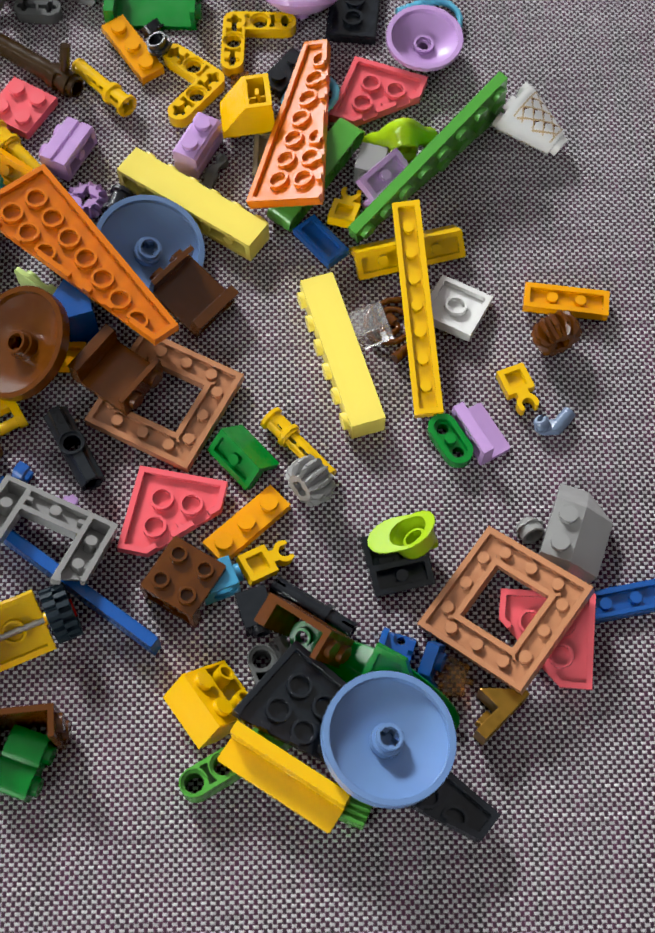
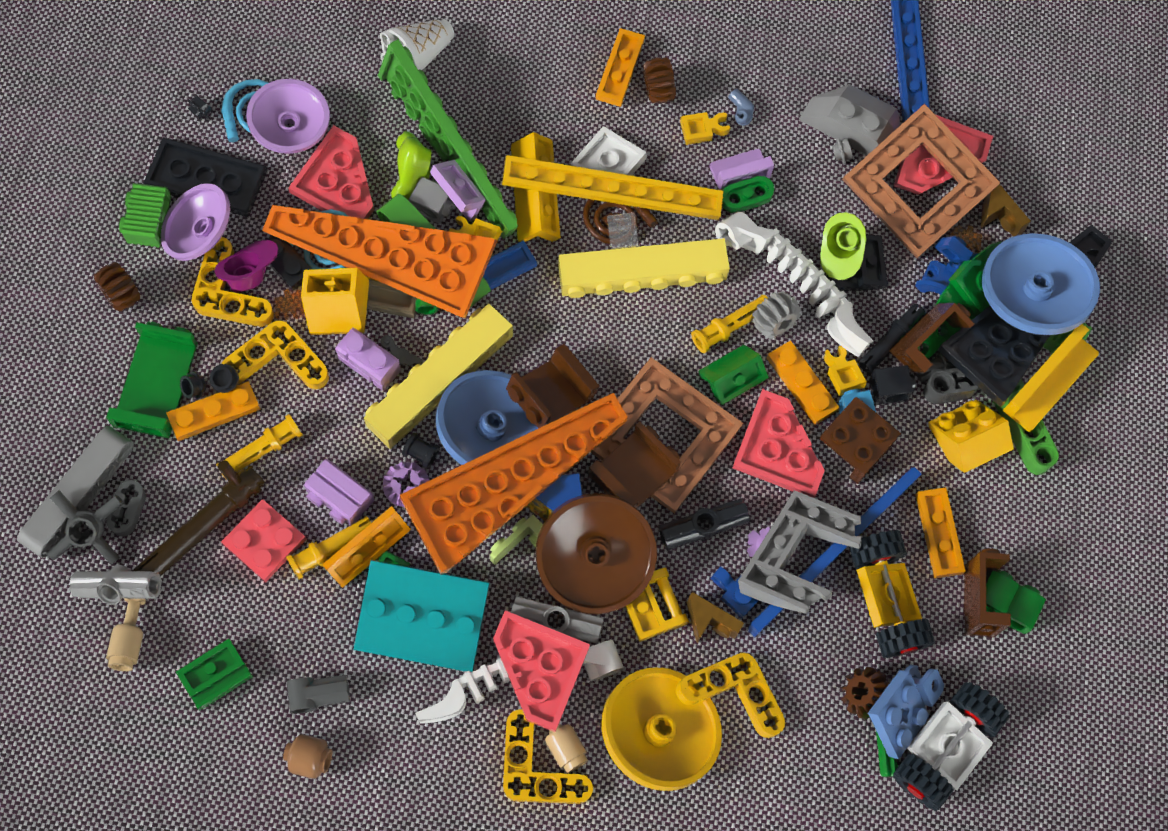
camera: 85 degrees left, 5 degrees up
(95, 682) = (940, 533): none -> light orange plate
(267, 40) = (247, 266): none -> magenta piece
(399, 433) = (743, 232): none -> white piece

